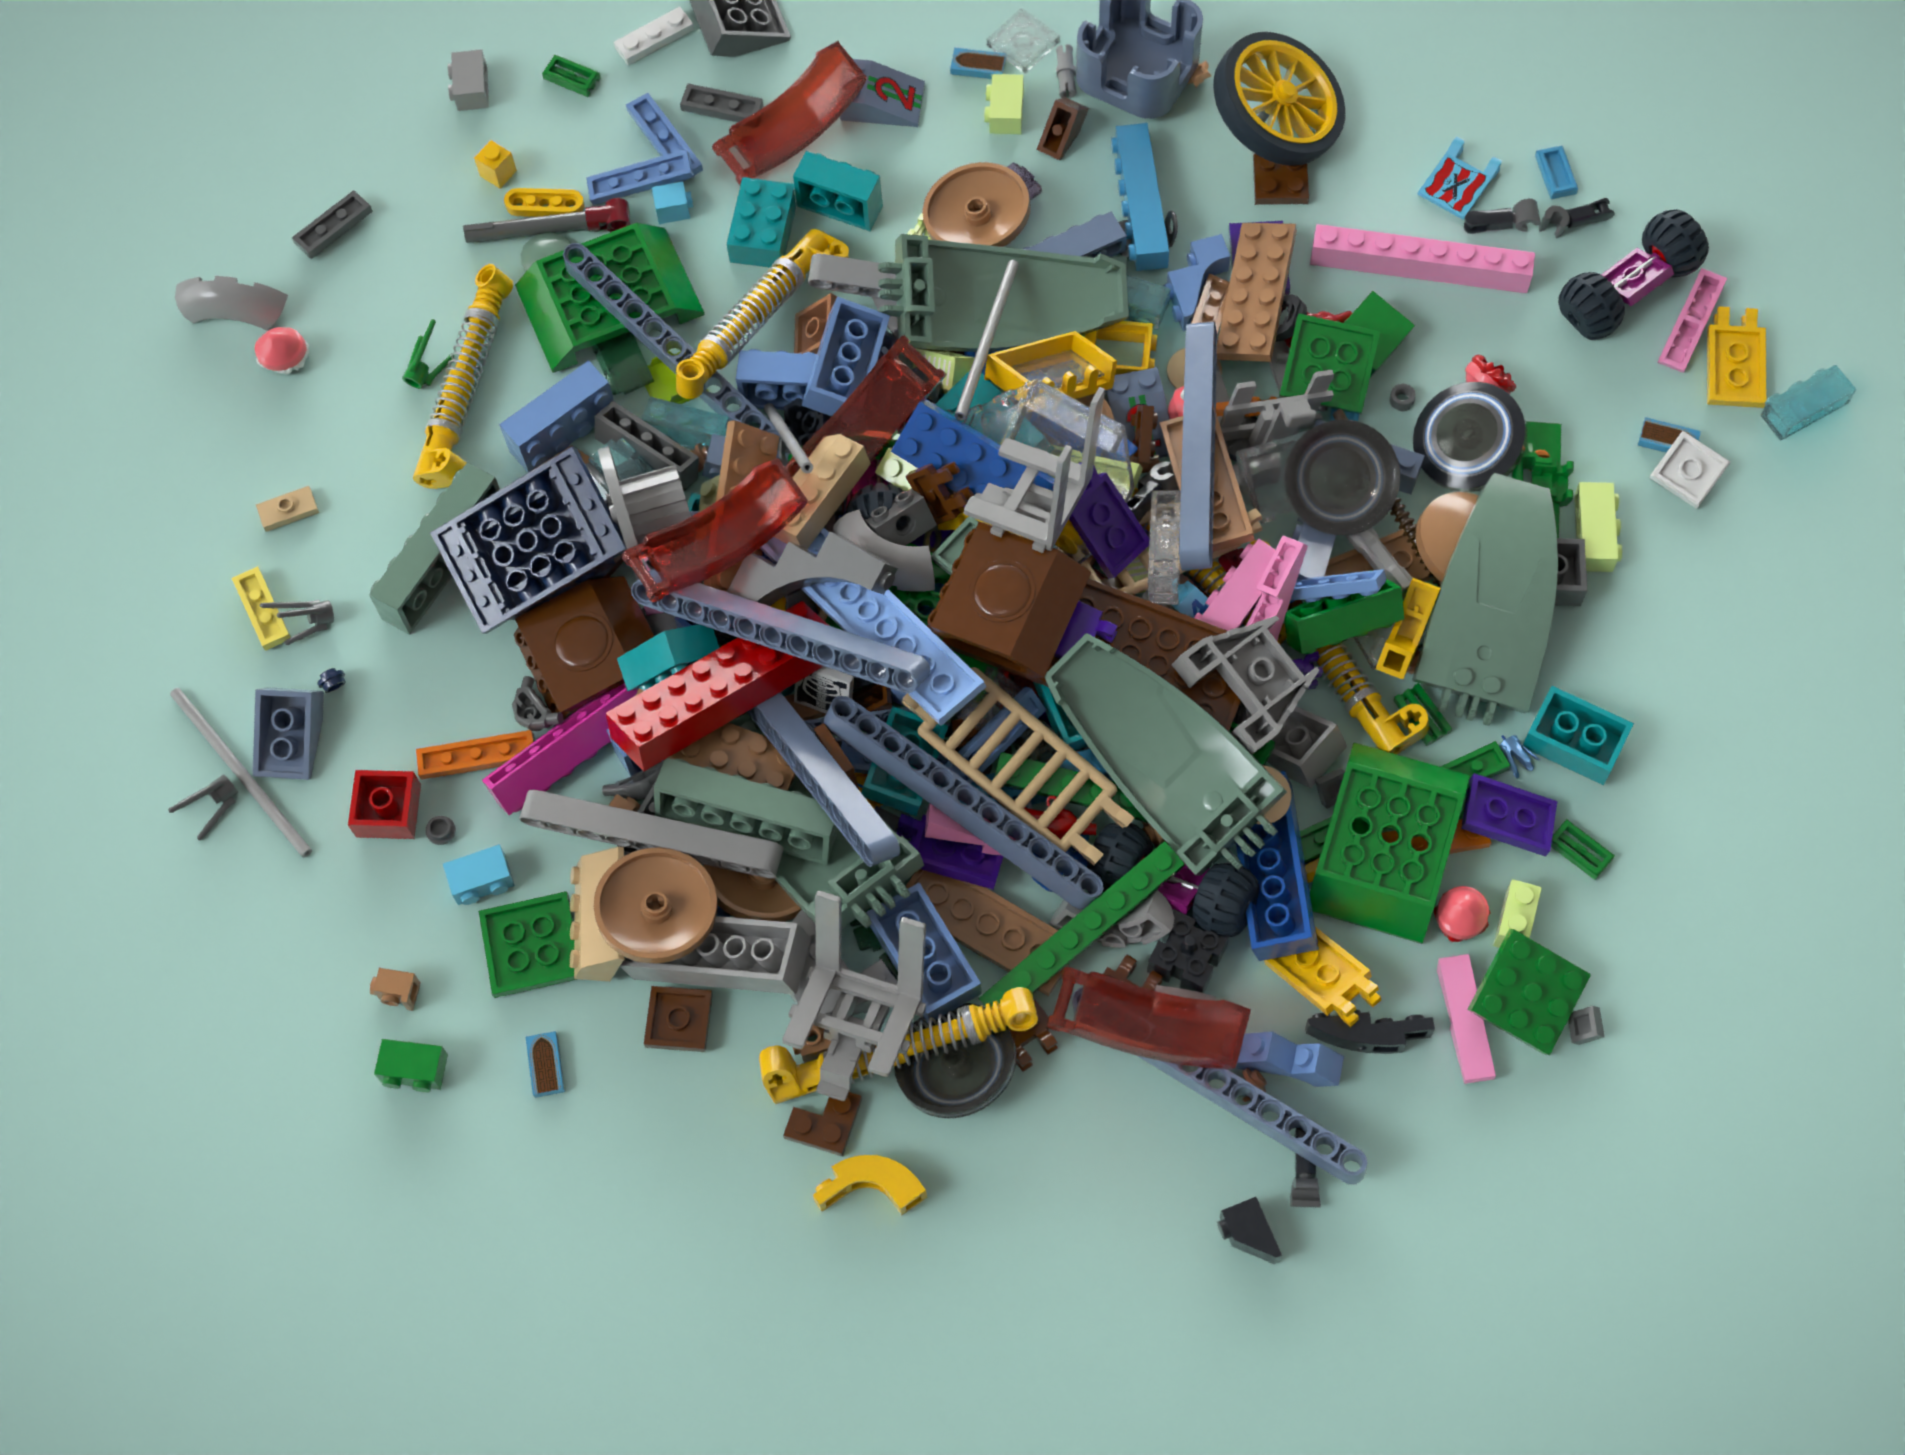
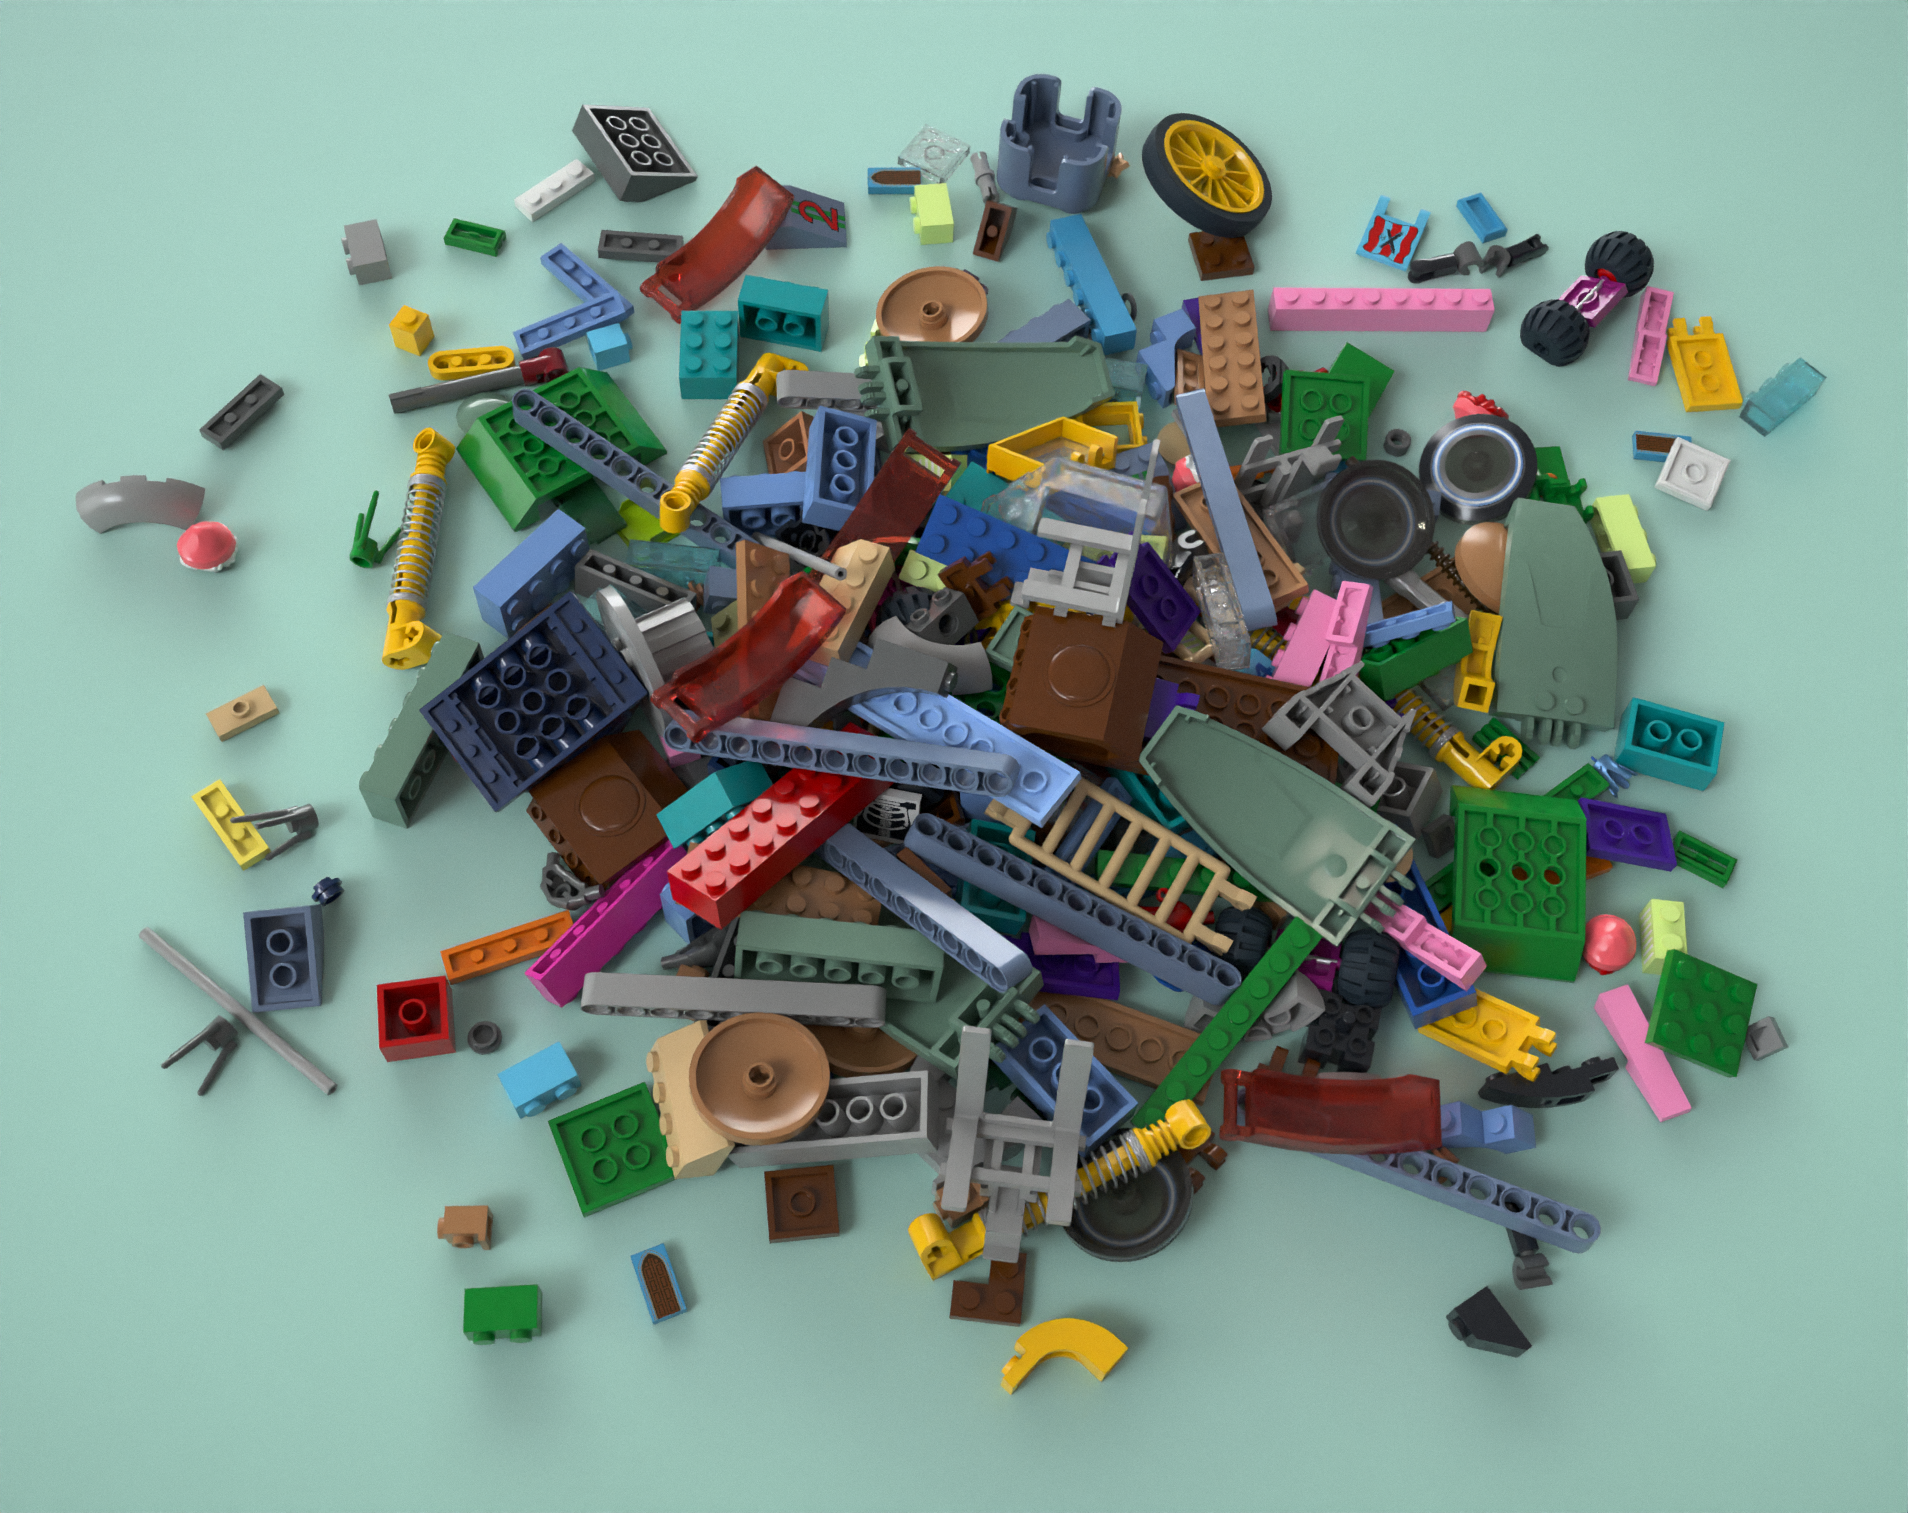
camera: 20 degrees left, 5 degrees down
(986, 340) = (982, 469): light grey piece -> none
(1281, 886) = (1430, 945): none -> bright pink slope

